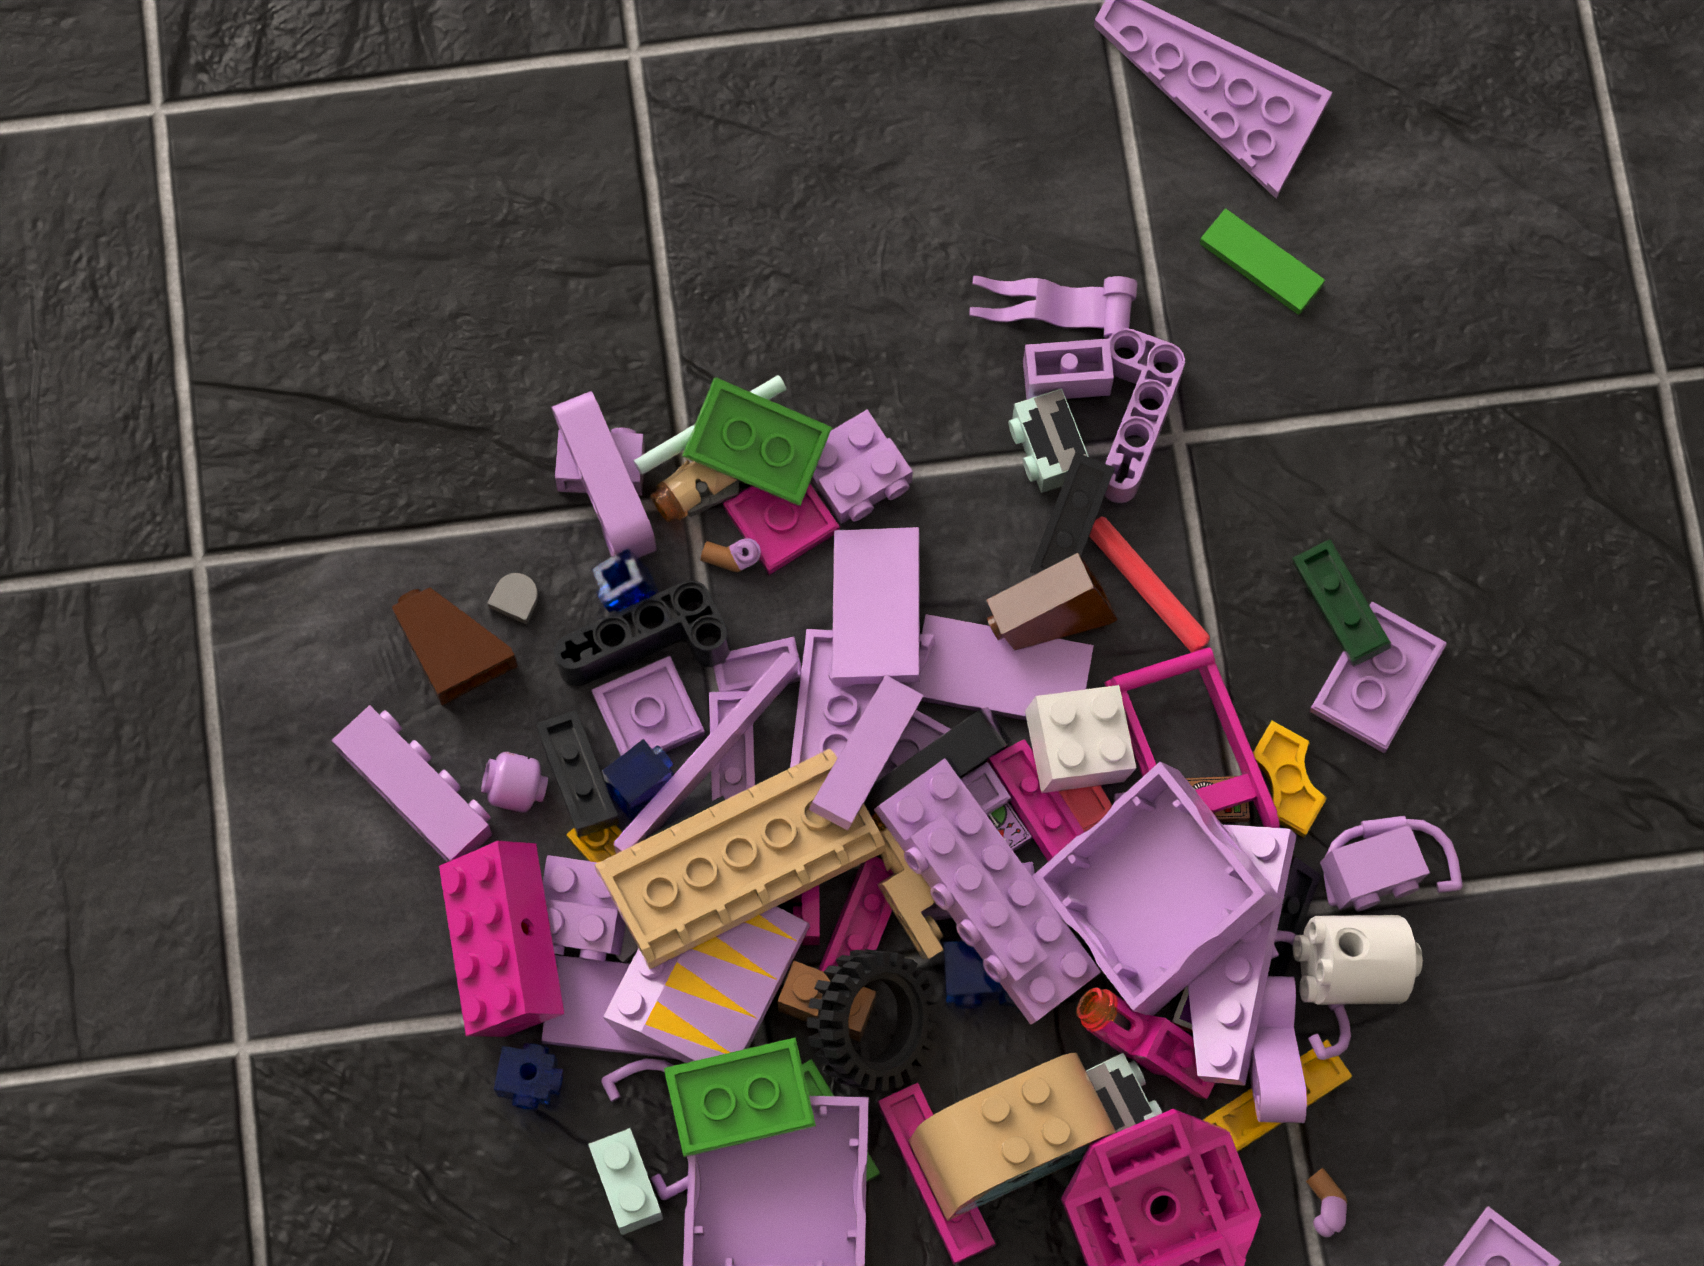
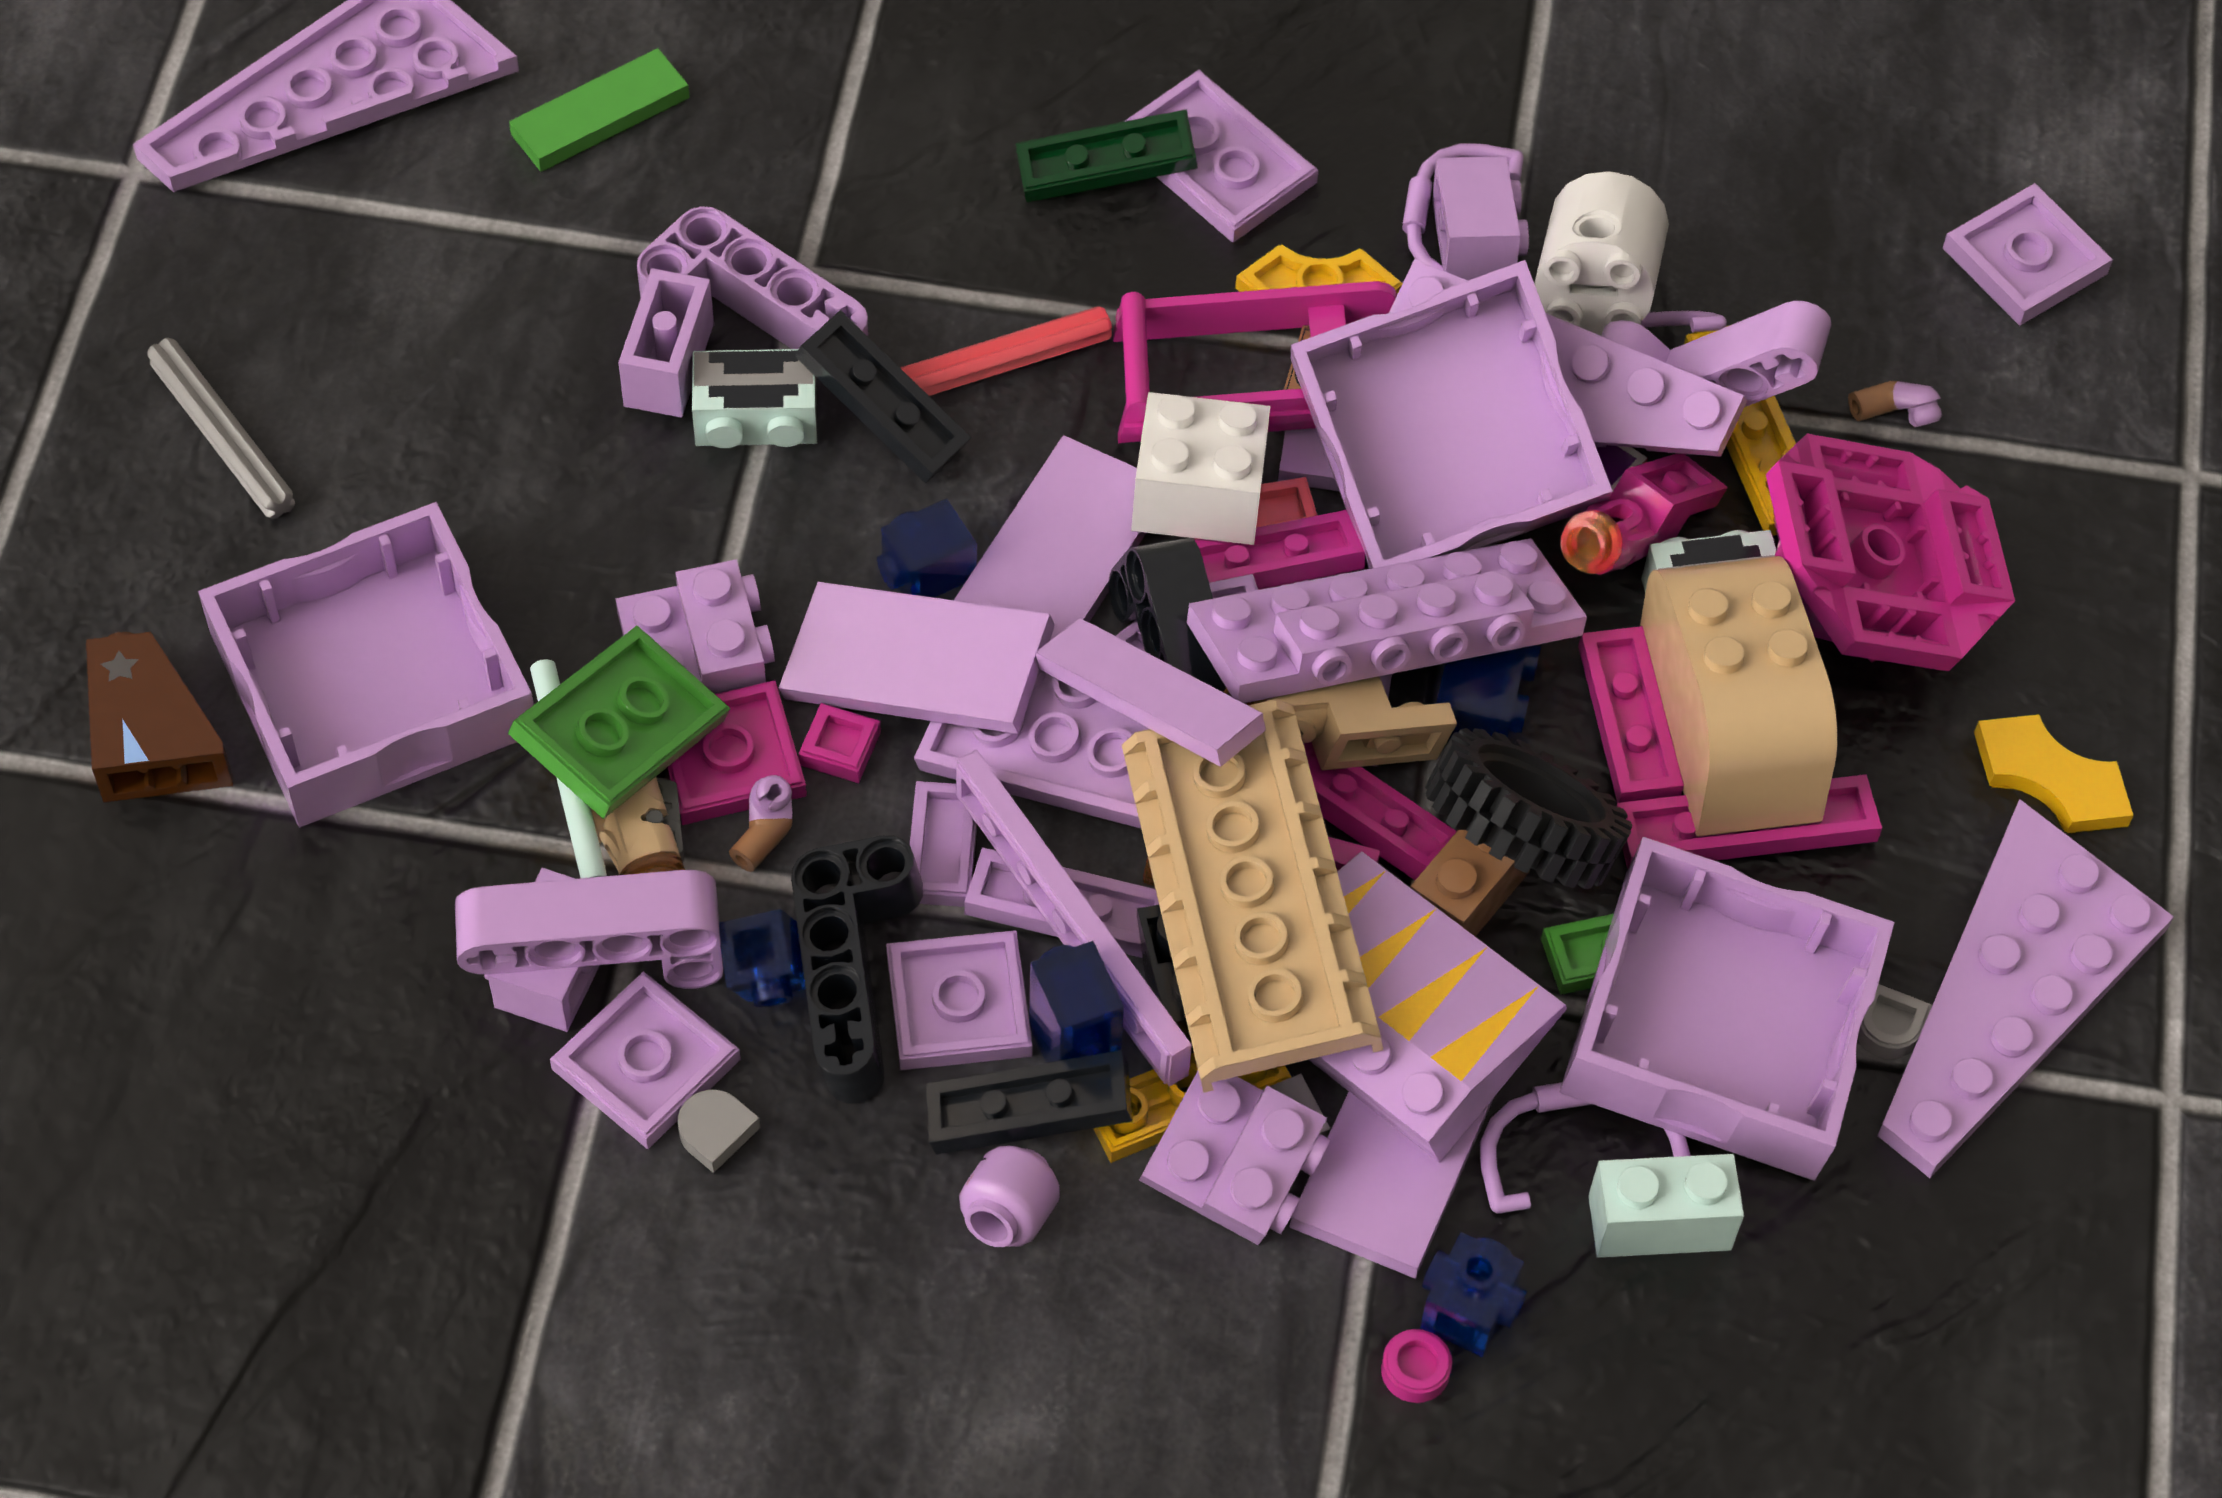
camera: 75 degrees left, 15 degrees down
(412, 786) = (966, 1339): lavender brick -> none
(450, 644) = (756, 1230): reddish brown slope -> none
(479, 1058) = (1416, 1365): none -> dark pink tile
(501, 939) = (1260, 1261): dark pink brick -> none
(549, 542) = (644, 1059): none -> lavender tile
(683, 169) = (147, 724): none -> reddish brown slope
(739, 1097) = (1603, 990): bright green tile -> none
(765, 280) = (367, 663): none -> lavender tile
(810, 581) = (839, 743): none -> dark pink tile
(917, 127) = (221, 428): none -> light grey axle
(965, 586) = (927, 551): none -> clear blue brick
(992, 1069) = (1630, 714): none -> dark pink plate
(1051, 605) = (997, 447): slope -> none
(1063, 306) = (566, 333): lavender flag -> none

